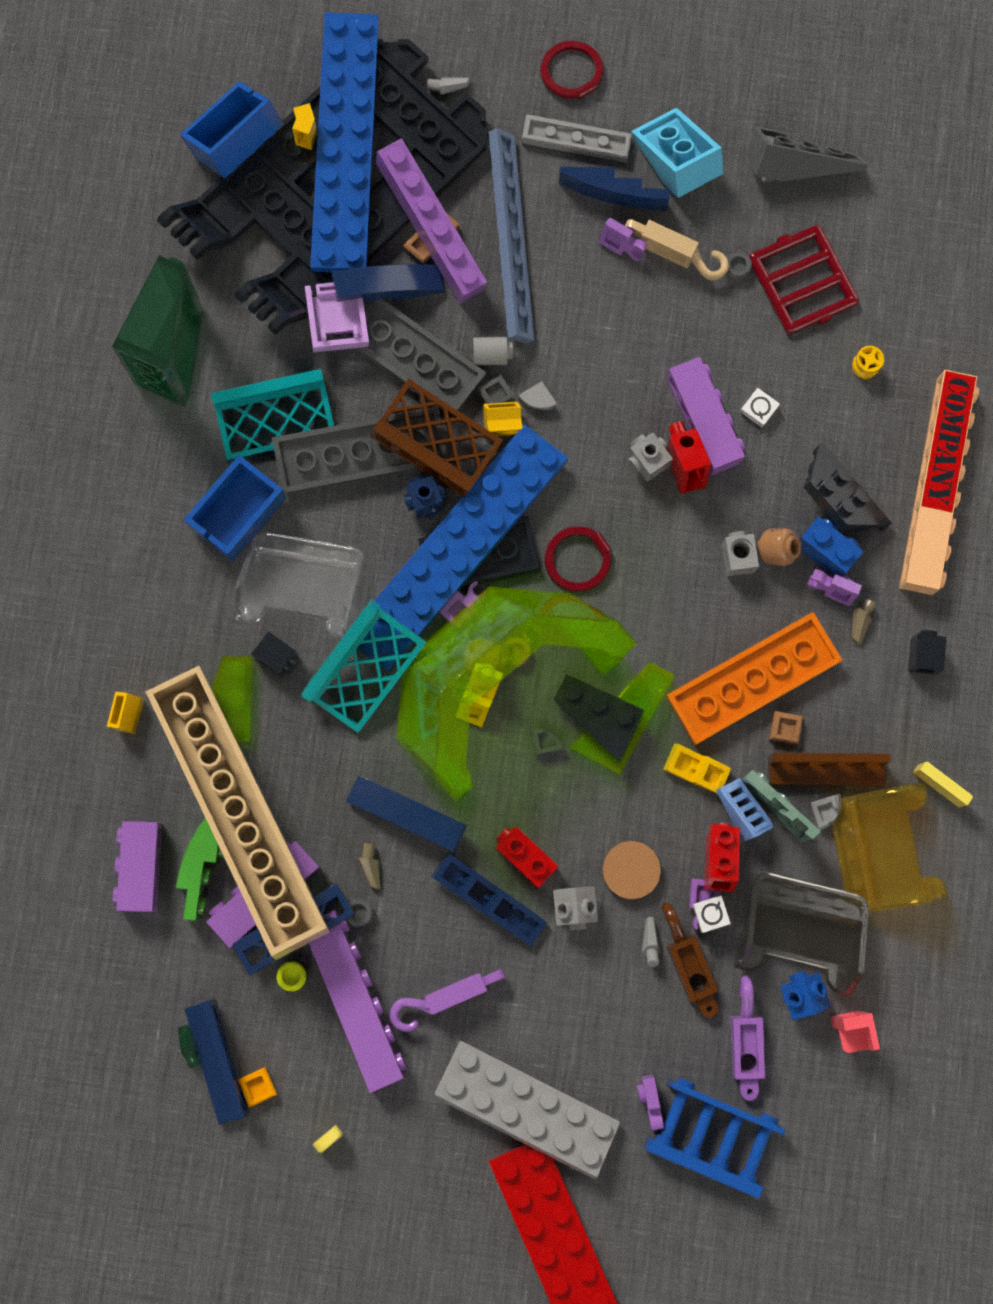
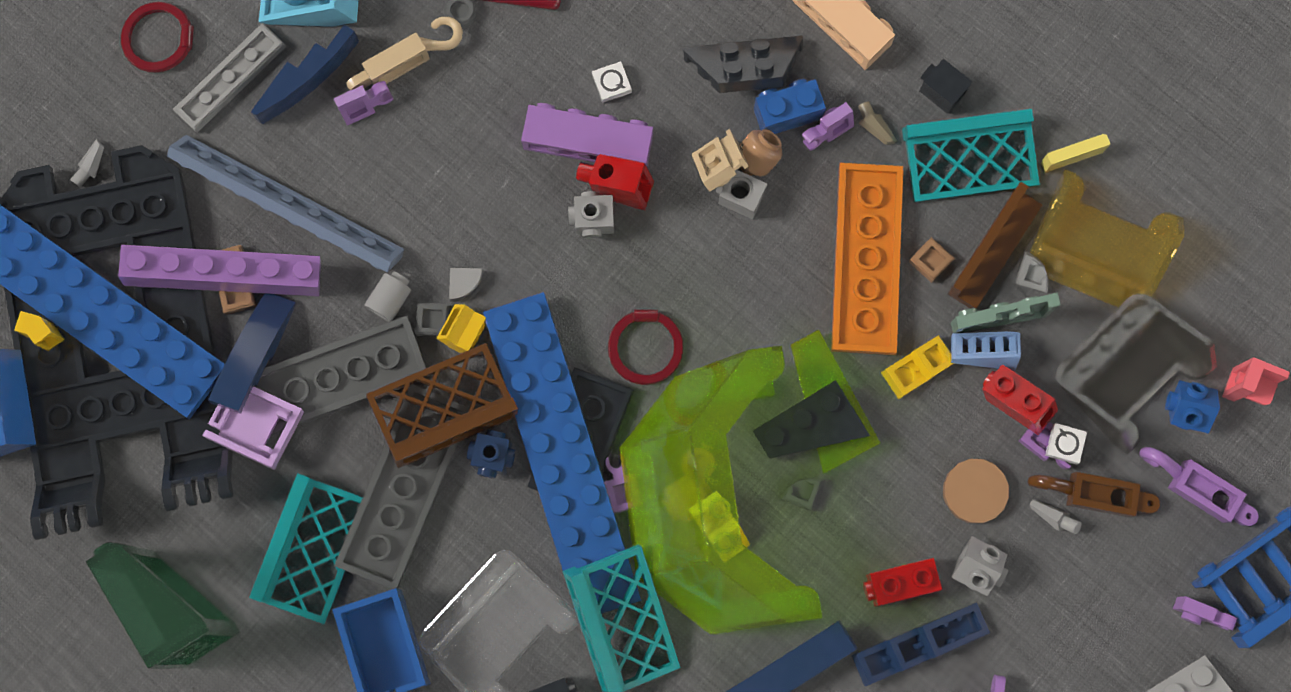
camera: 50 degrees left, 0 degrees up
(751, 519) = (719, 160): none -> tan plate
(905, 690) = (970, 127): none -> teal fence

